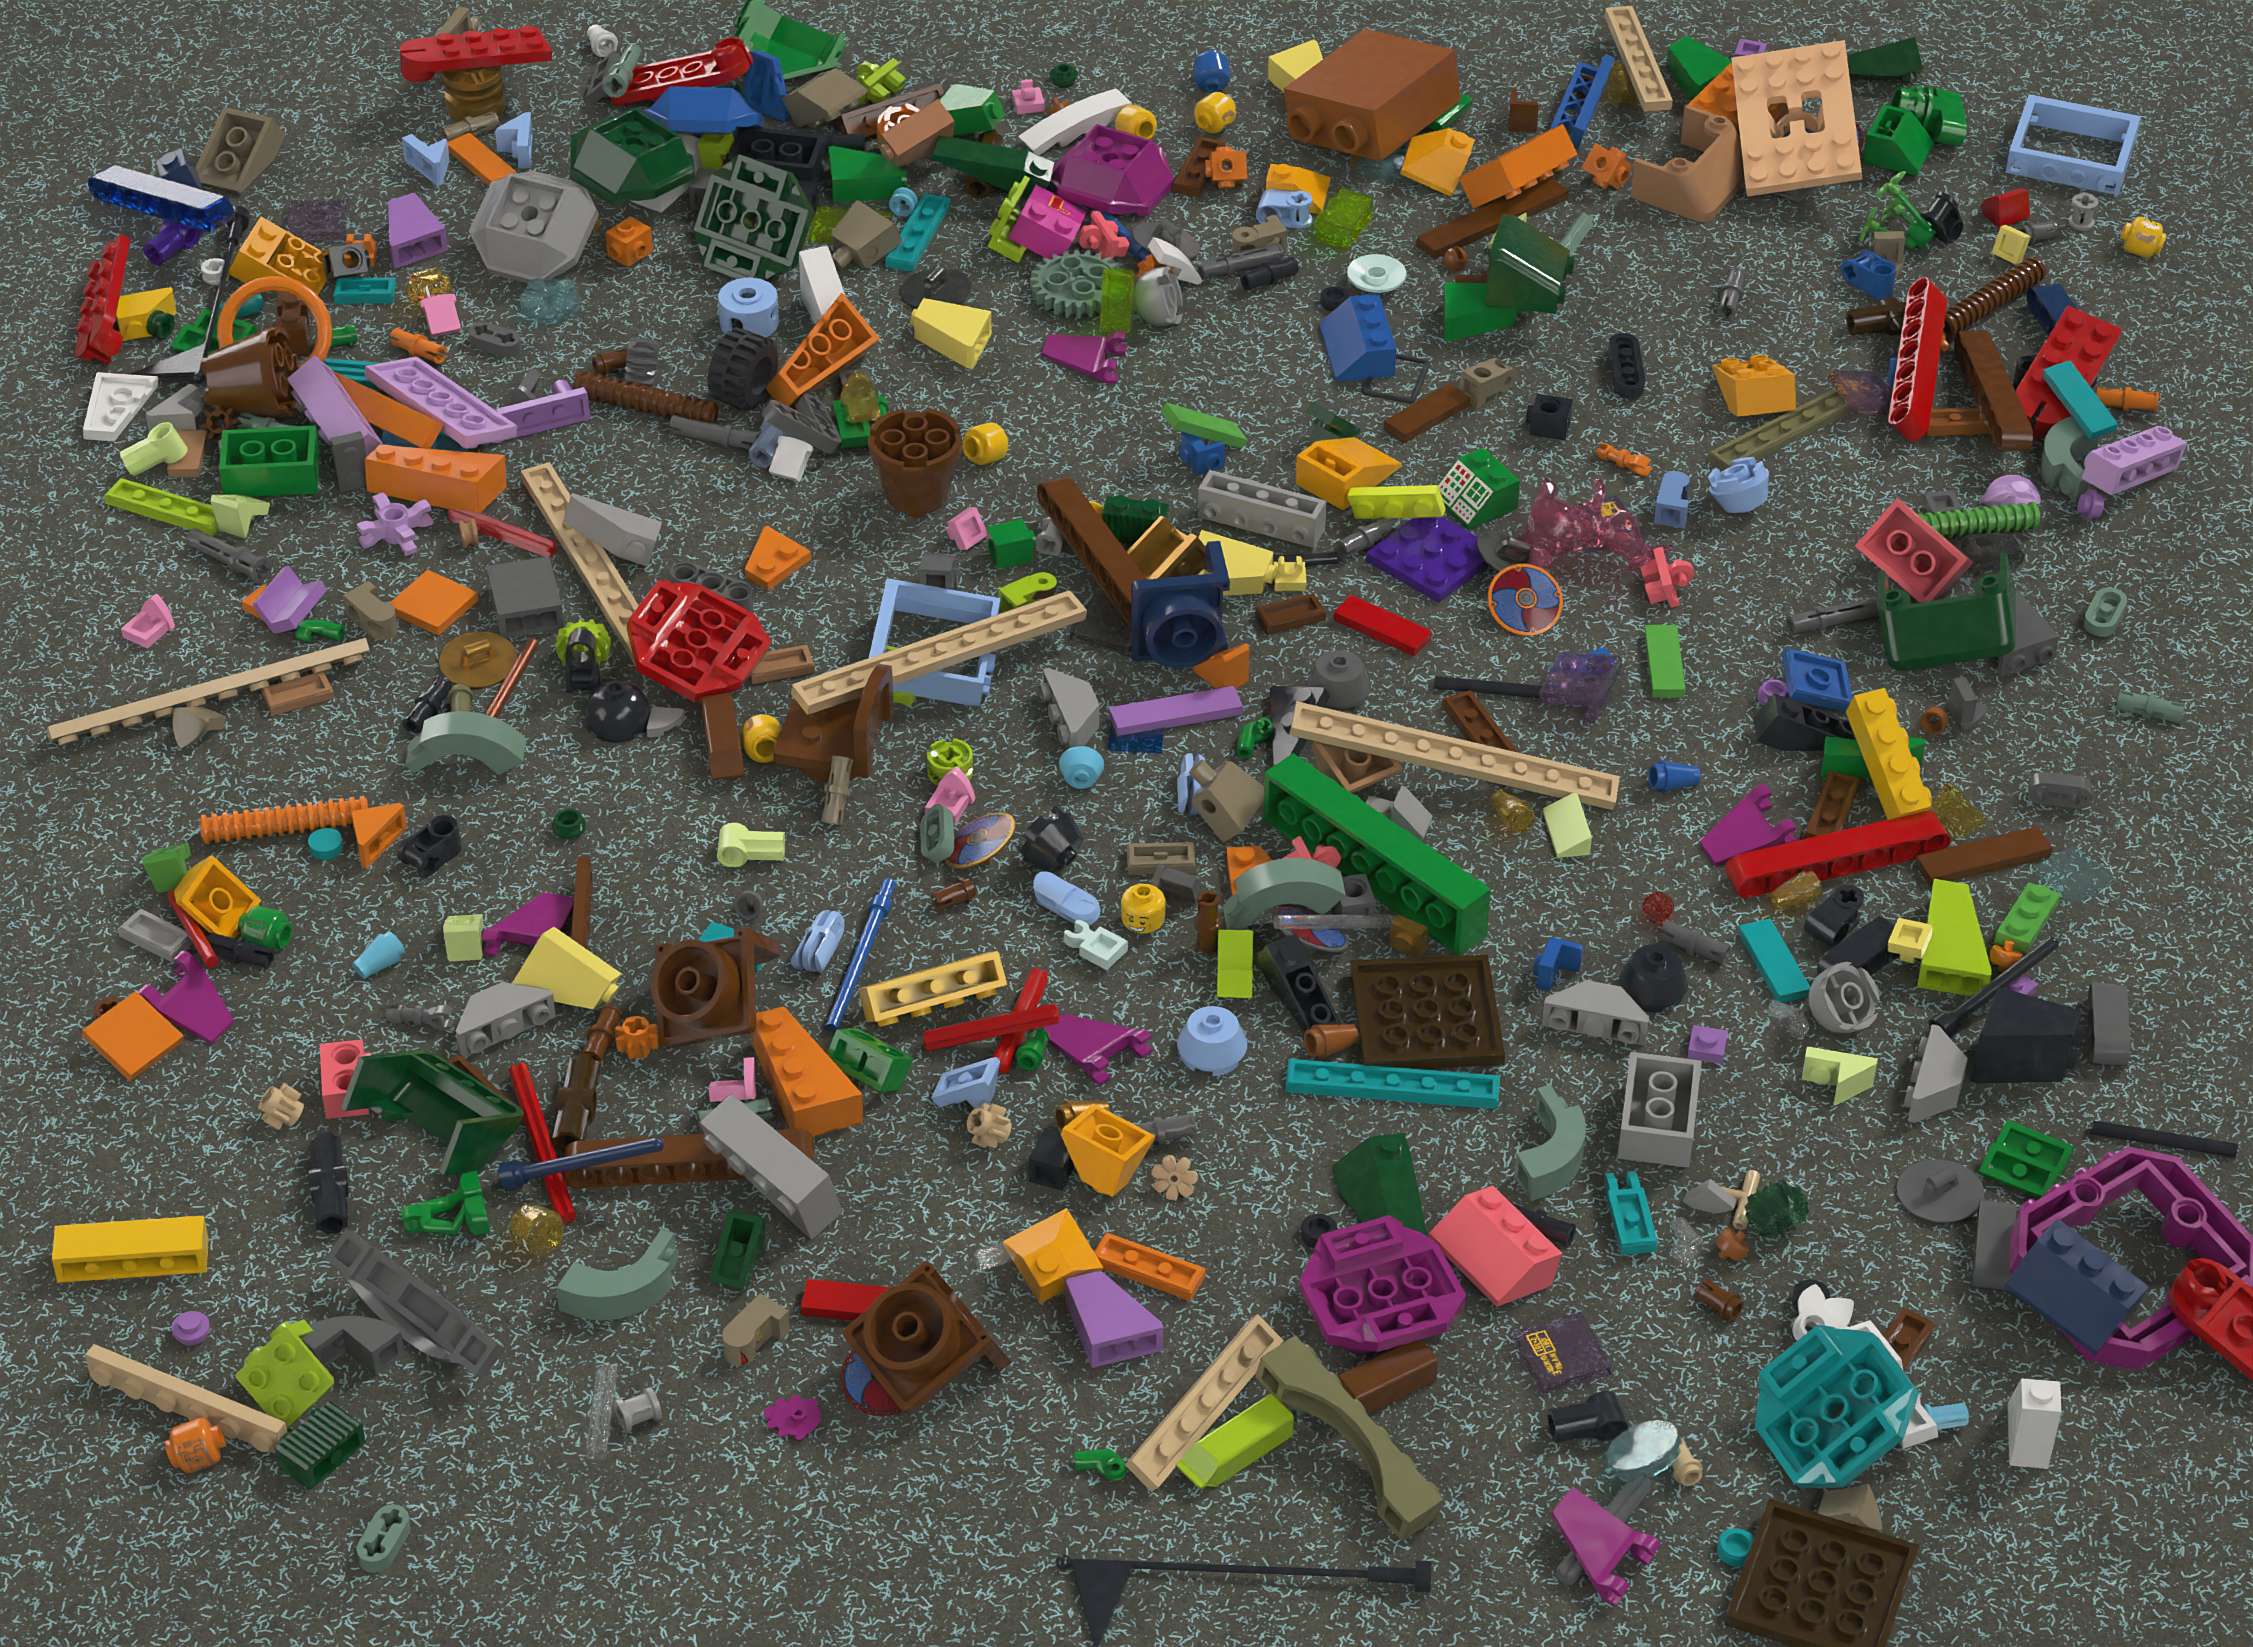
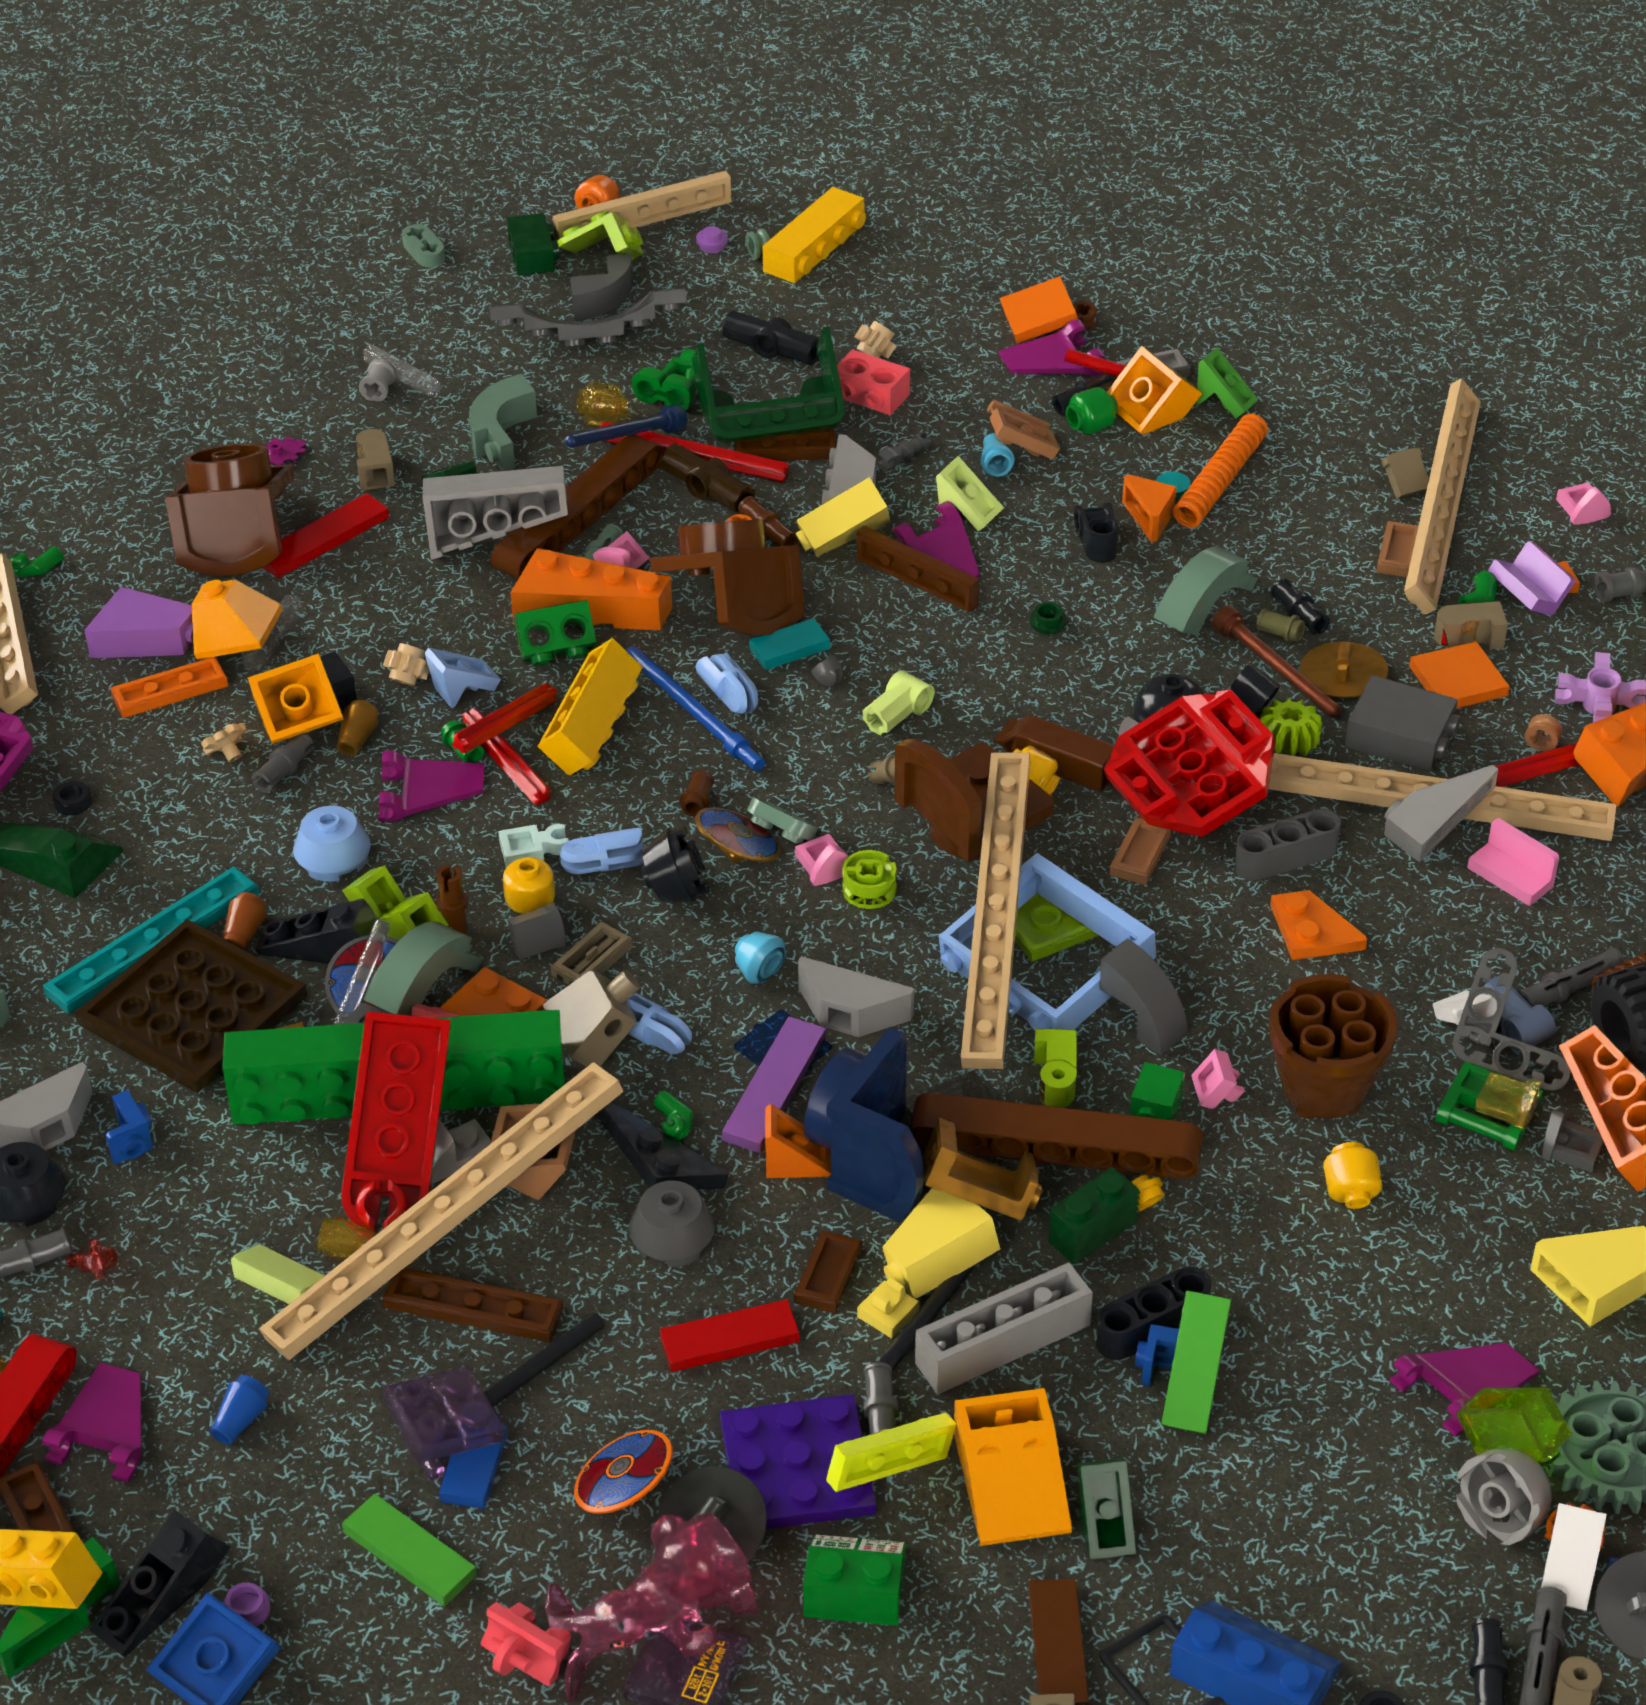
camera: 130 degrees right, 0 degrees up
(177, 1282) = (755, 242): none -> sand green bush
(341, 941) = (1023, 430): none -> medium nougat plate
(627, 491) = (1515, 863): none -> bright pink panel
(1172, 467) = (1157, 1303): none -> black beam
(1428, 805) = (394, 1115): none -> red plate

